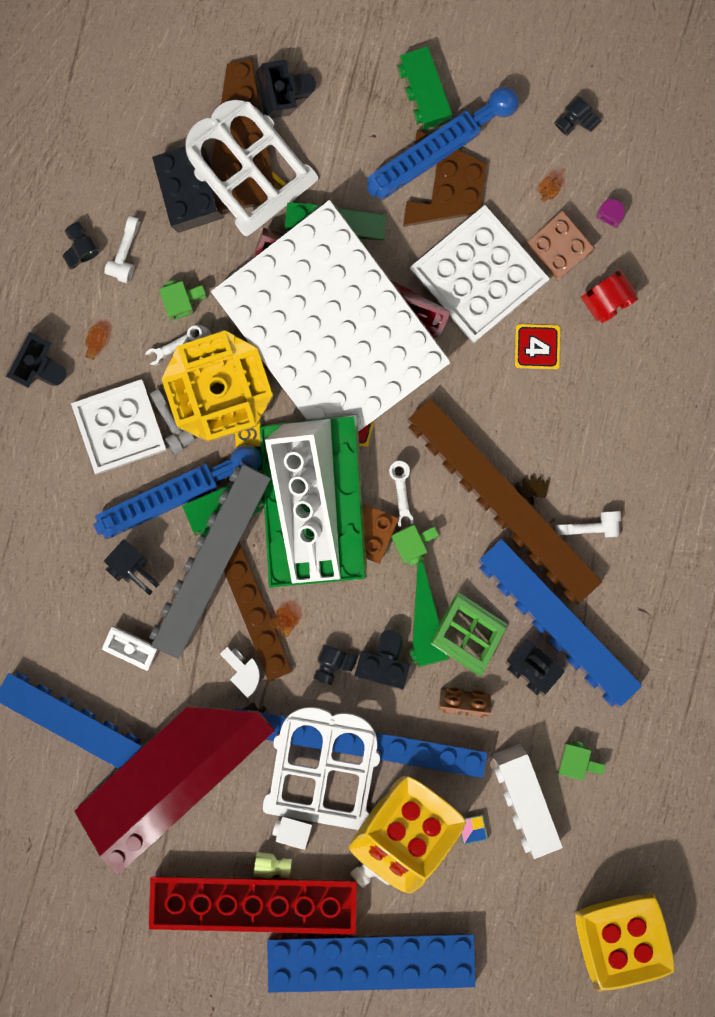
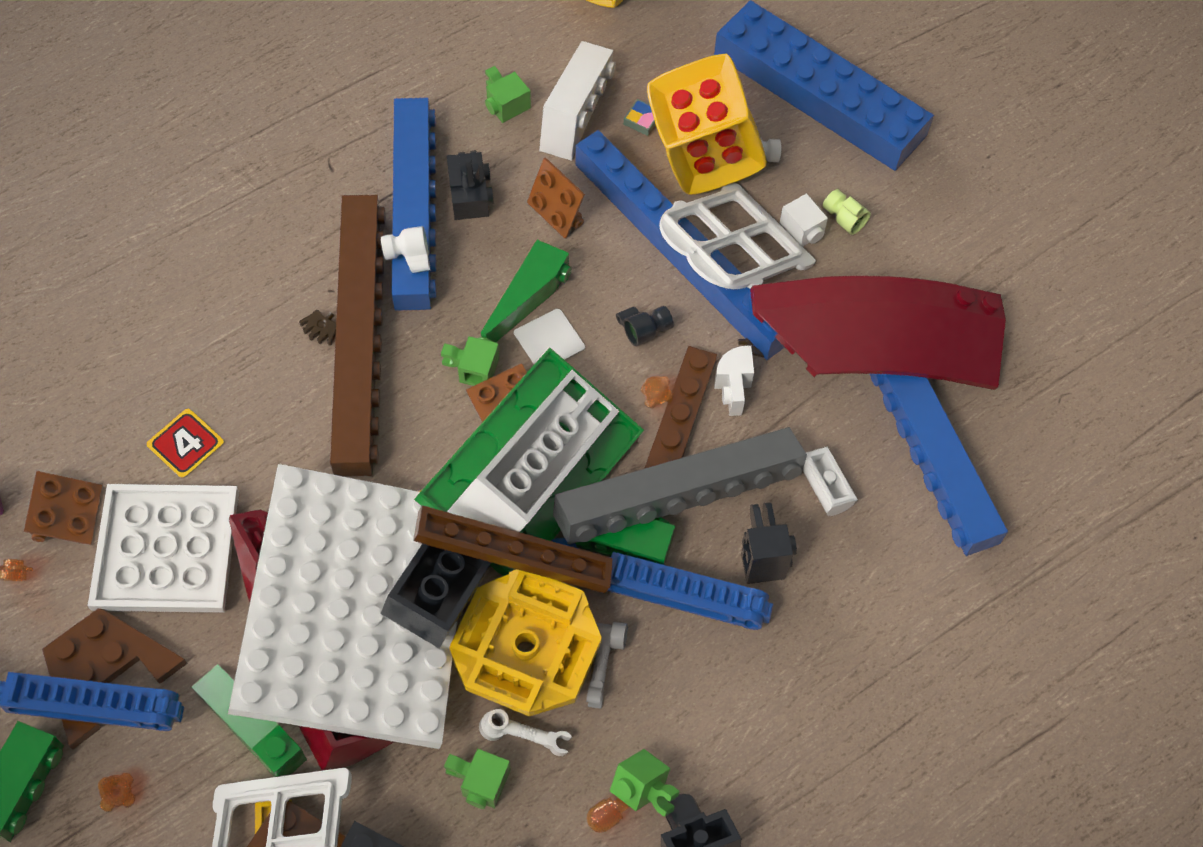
camera: 140 degrees left, 20 degrees down
(87, 368) = (643, 781): none -> bright green brick
(118, 427) = (660, 700): white plate -> none
(252, 905) = (893, 190): red brick -> none
(263, 423) = (513, 549): none -> reddish brown plate
(289, 371) = (434, 592): none -> black brick
(367, 123) = (107, 787): none -> clear orange plate
(383, 665) = (599, 284): black brick -> none
(384, 604) = (549, 331): none -> white sticker
(401, 490) = (426, 424): white brick -> none
(457, 652) = (522, 237): bright green piece -> none
(518, 579) = (411, 244): none -> white piece
(608, 525) = (288, 243): white brick -> none
(609, 295) = (72, 417): red brick -> none

